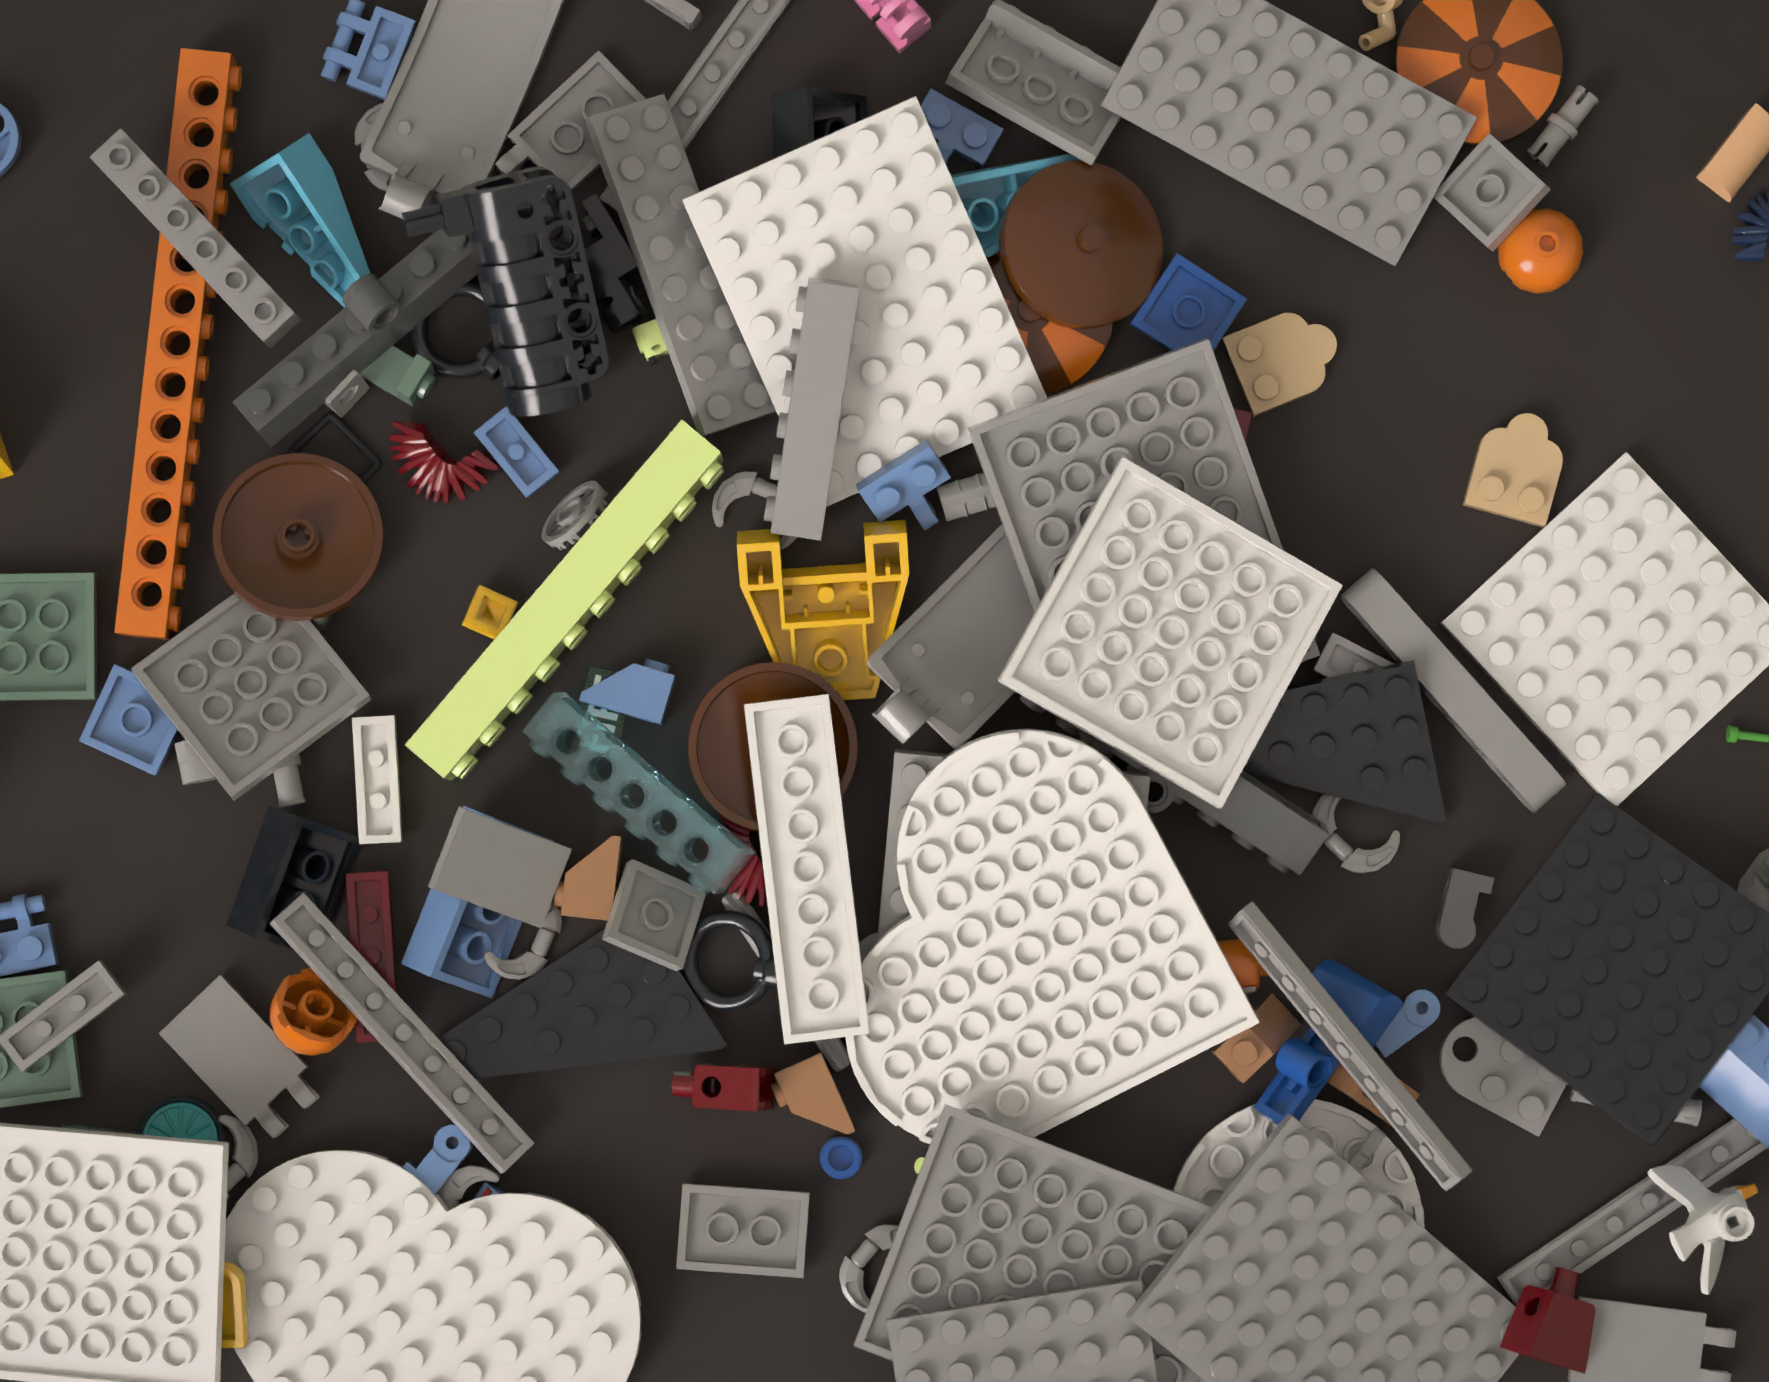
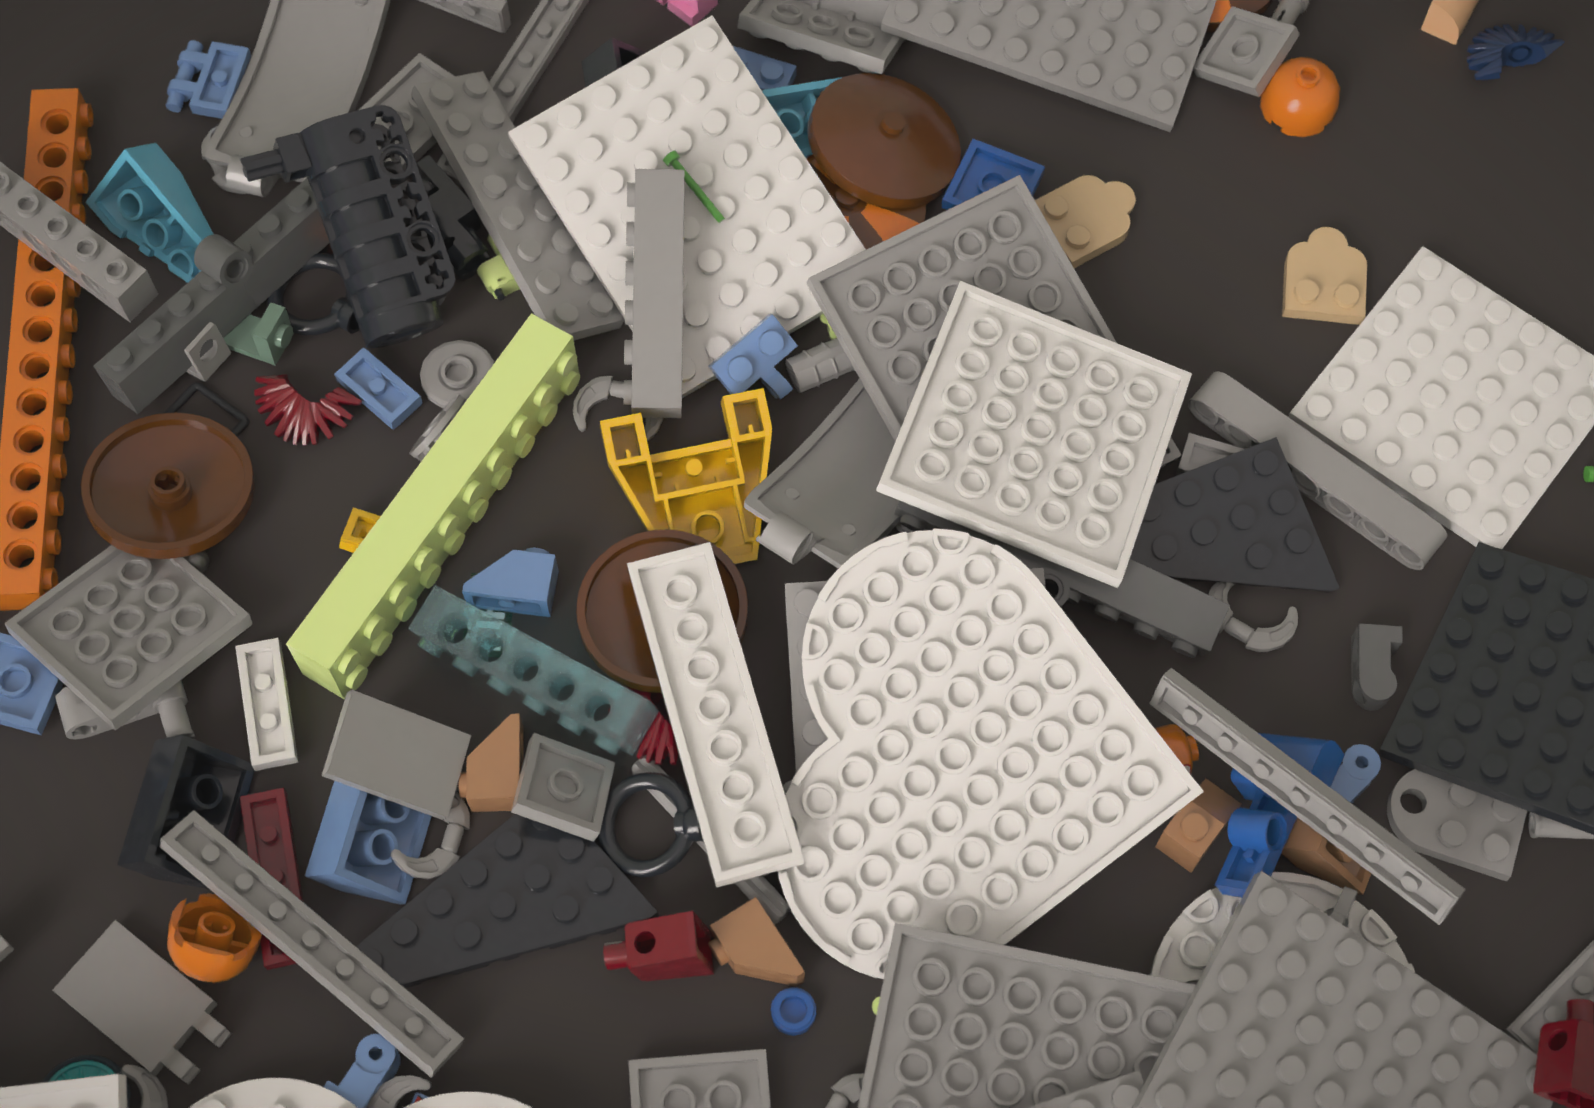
camera: 10 degrees left, 20 degrees down
(599, 446) = (454, 370): none -> light grey wheel
(850, 261) = (672, 160): none -> bright green piece

